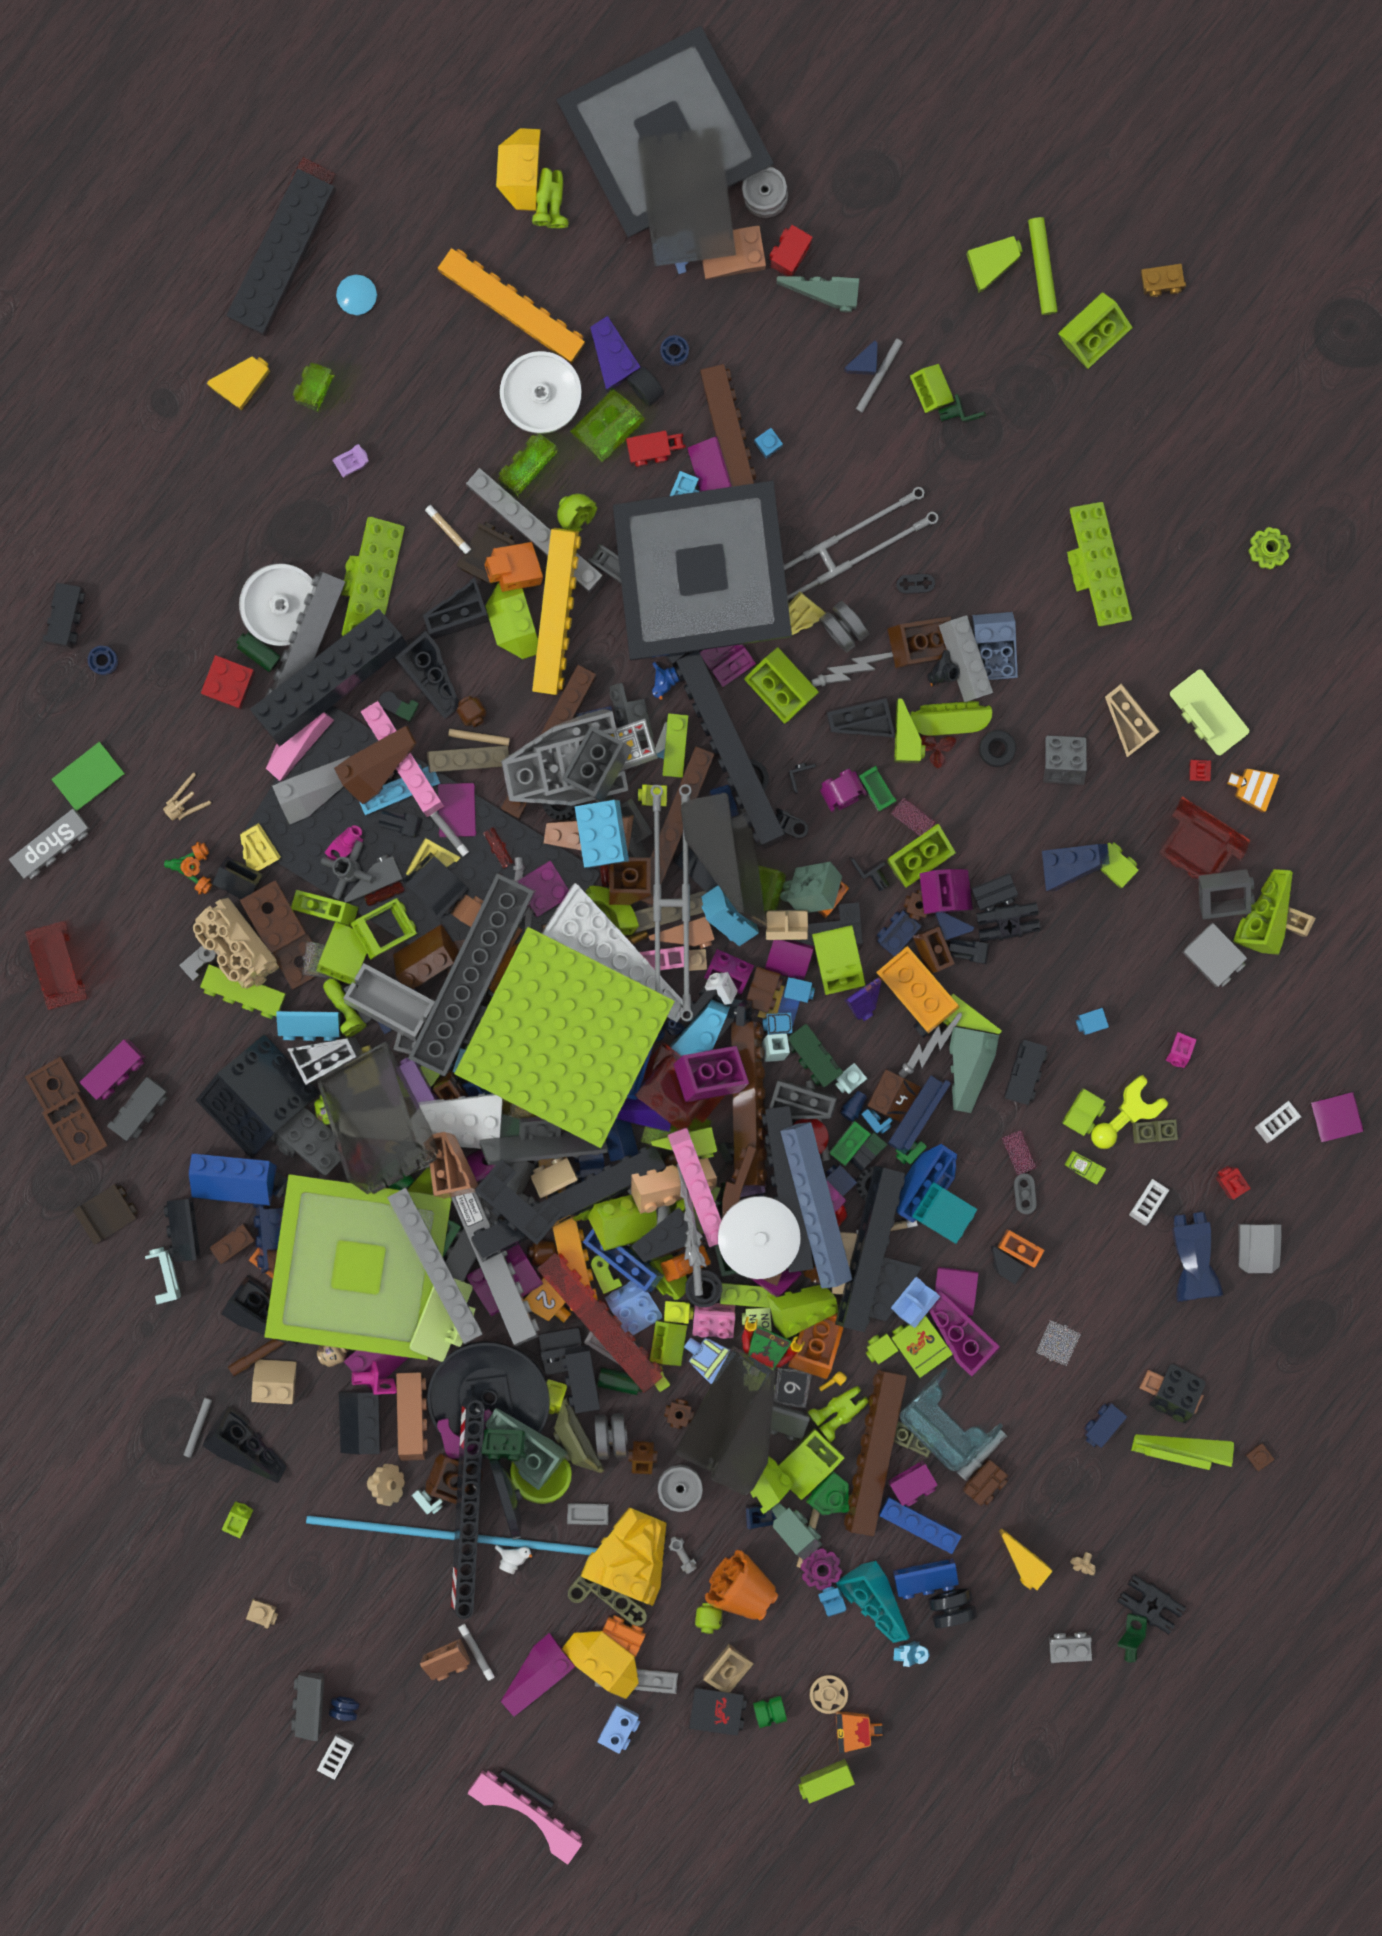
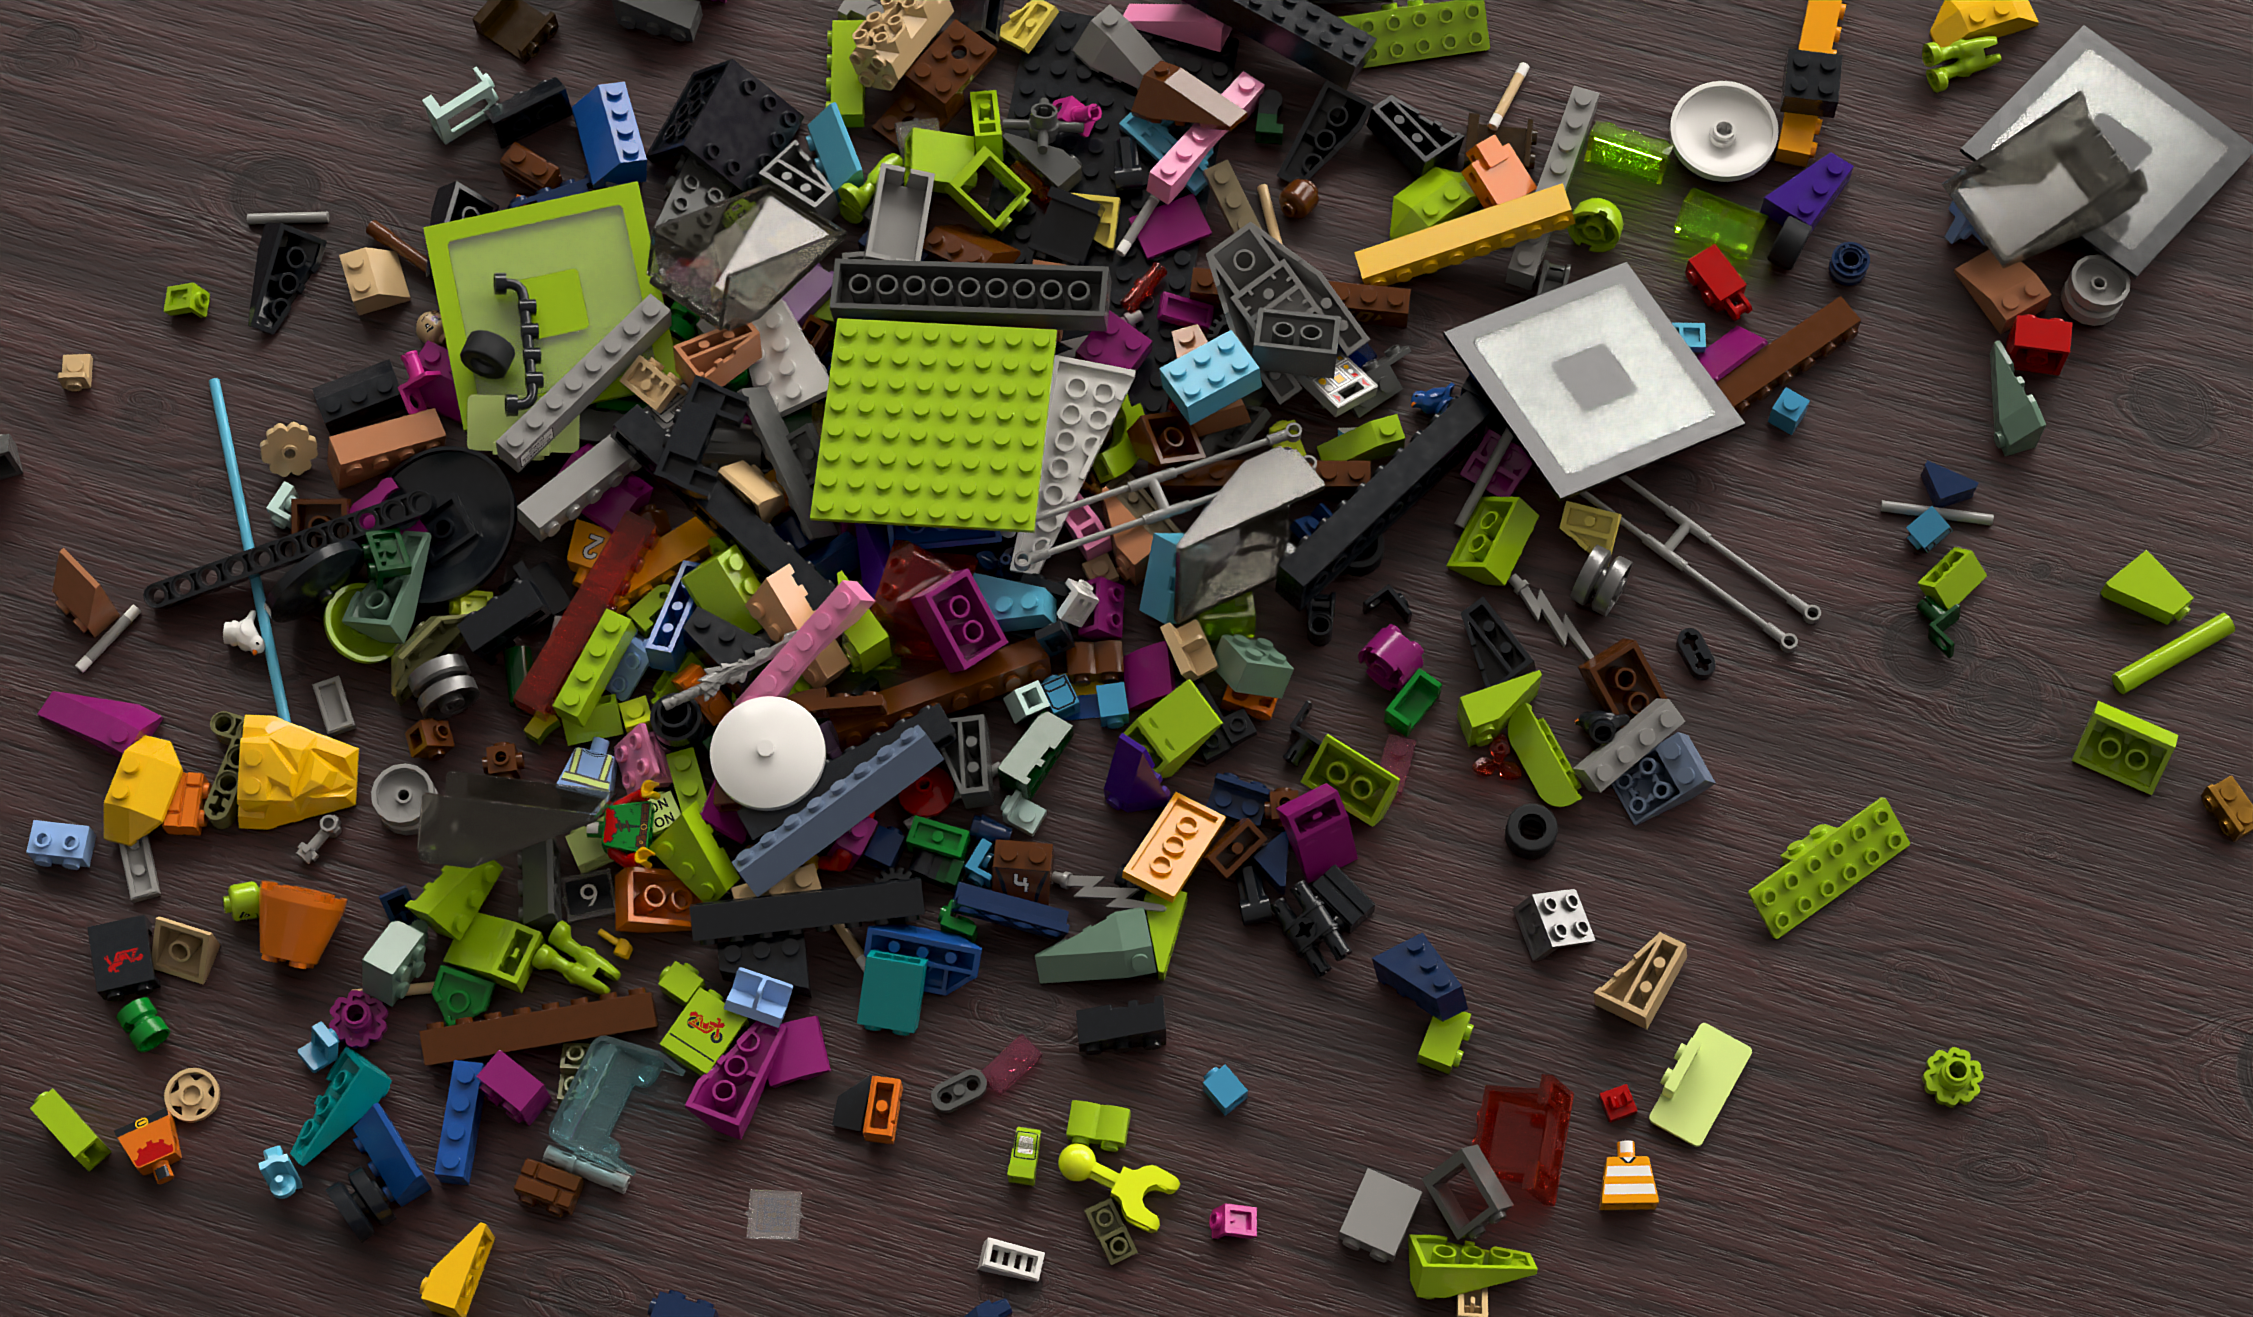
camera: 70 degrees right, 20 degrees down
(384, 1325) = (487, 354): none -> black tyre
(396, 1295) = (529, 332): none -> black bar
(451, 1218) = (651, 384): none -> tan bracket
(527, 825) = (1184, 311): none -> magenta tile
(535, 317) = (1811, 83): none -> black brick
(643, 1330) = (594, 668): none -> lime brick
(738, 675) = (1484, 479): none -> light grey bar
(892, 388) = (1928, 530): none -> dark azure brick

